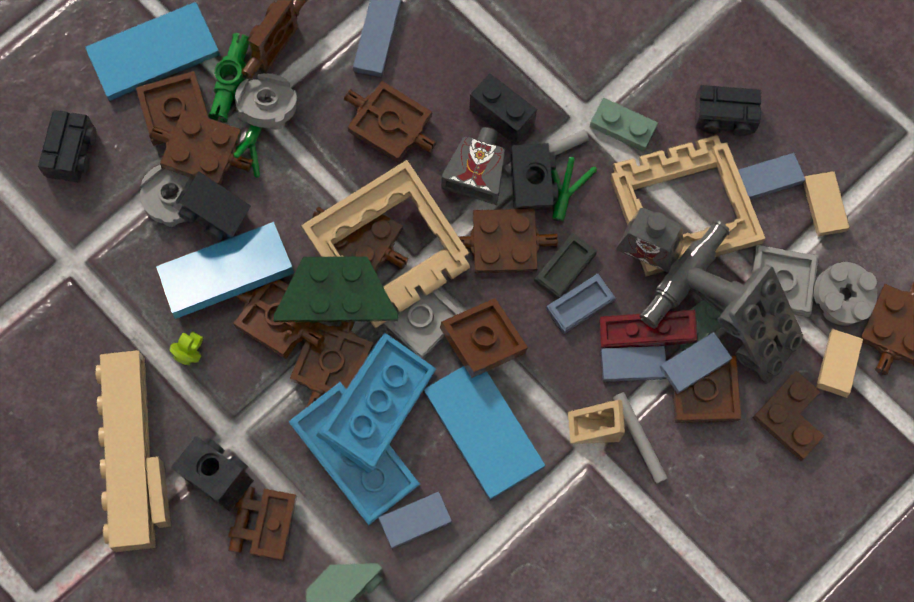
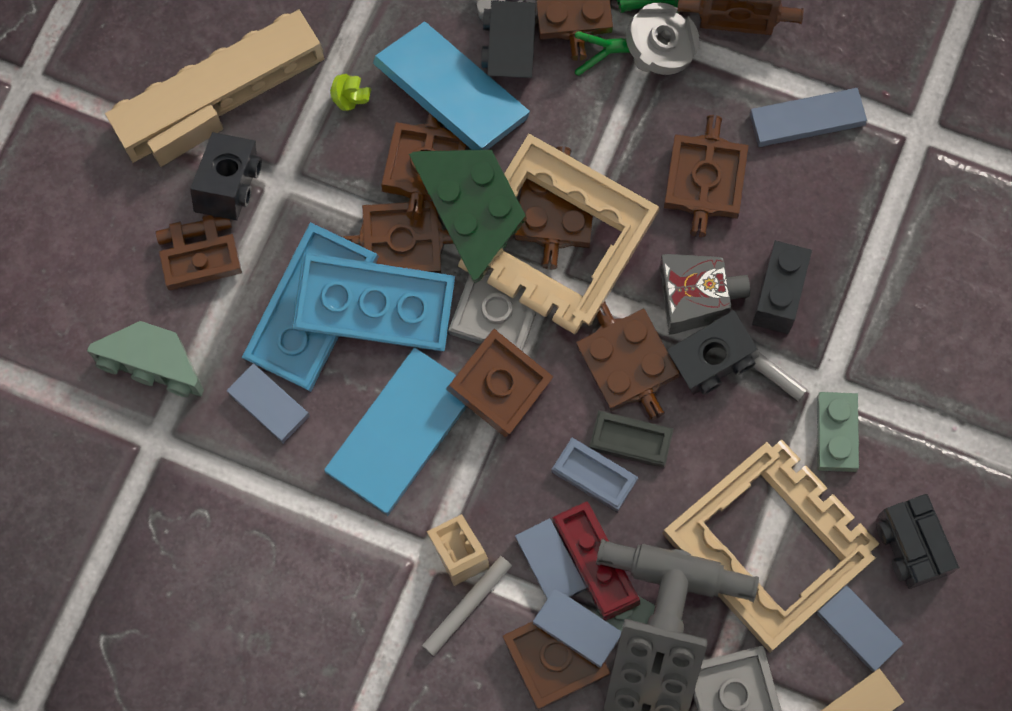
camera: 70 degrees right, 0 degrees up
(564, 191) = (713, 400): green plant -> none
(652, 239) = (698, 513): dark grey torso -> none

